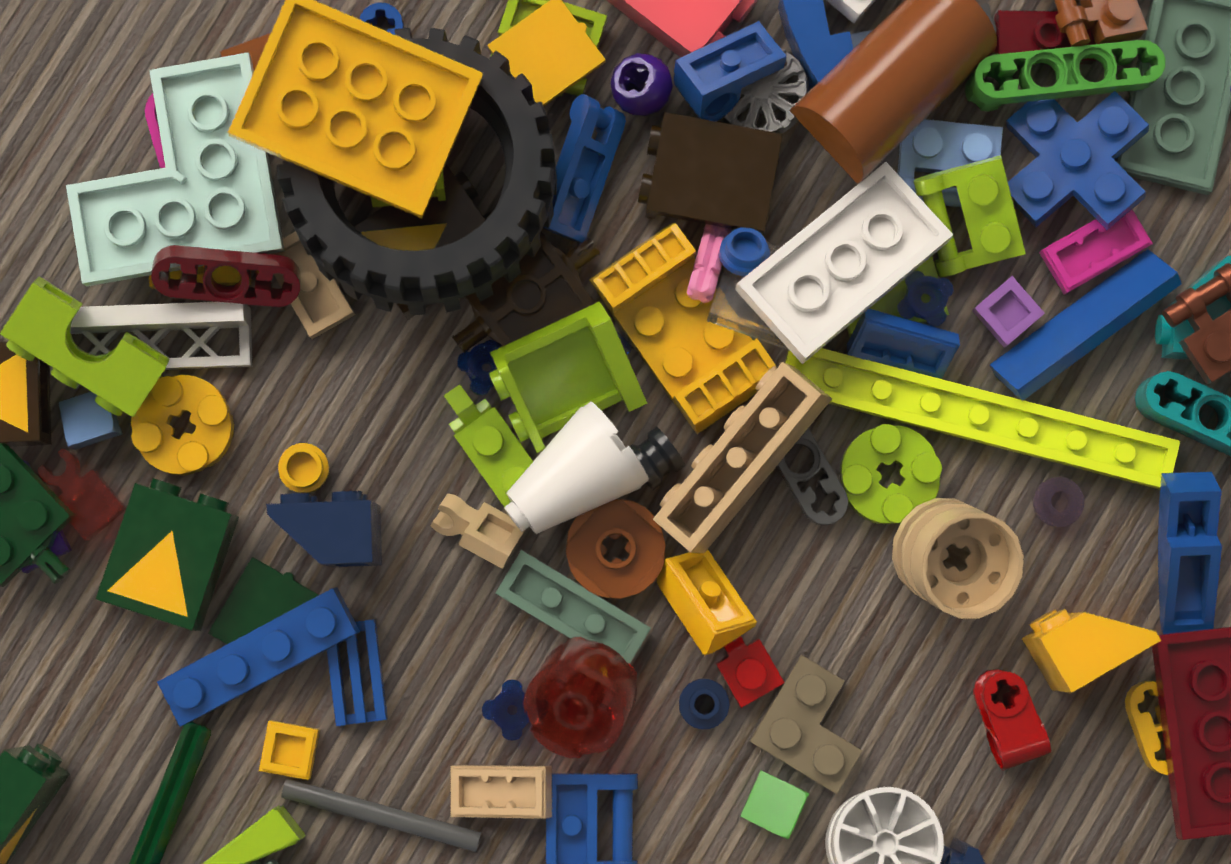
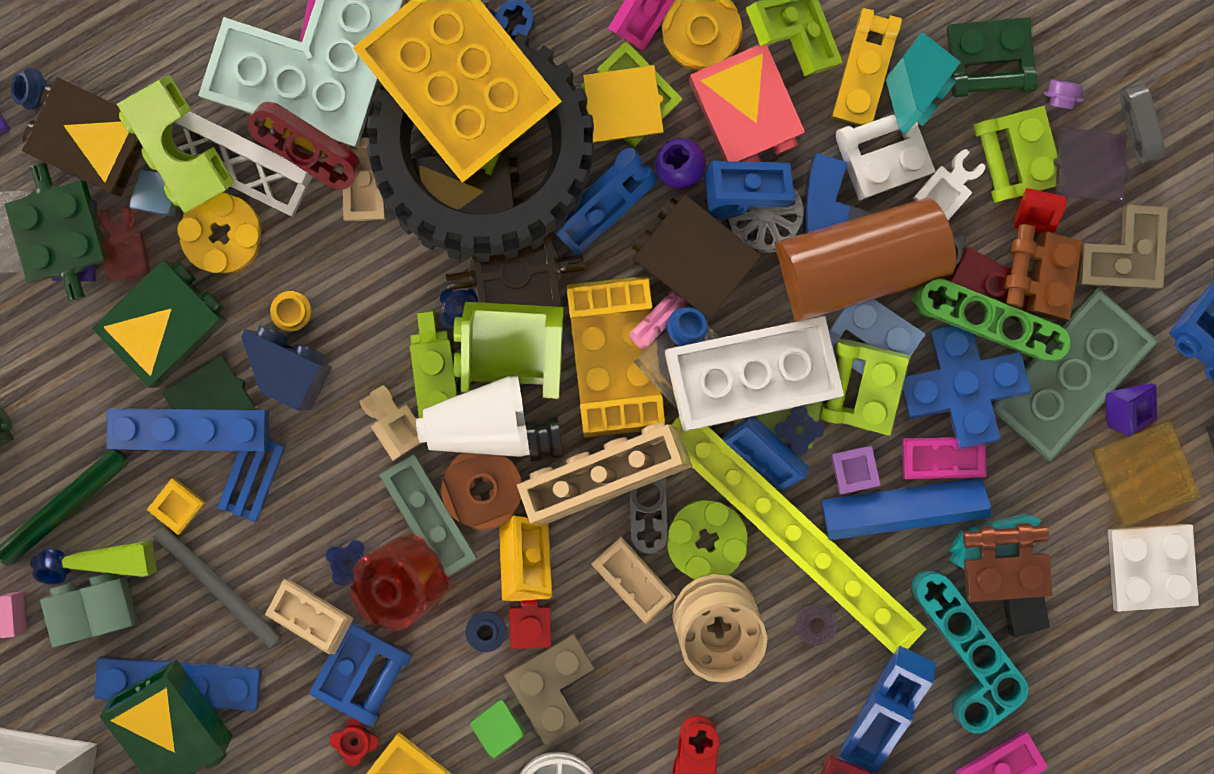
camera: 30 degrees right, 5 degrees up
(834, 560) = (633, 580): none -> tan plate
(1082, 646) = (774, 739): yellow slope -> none

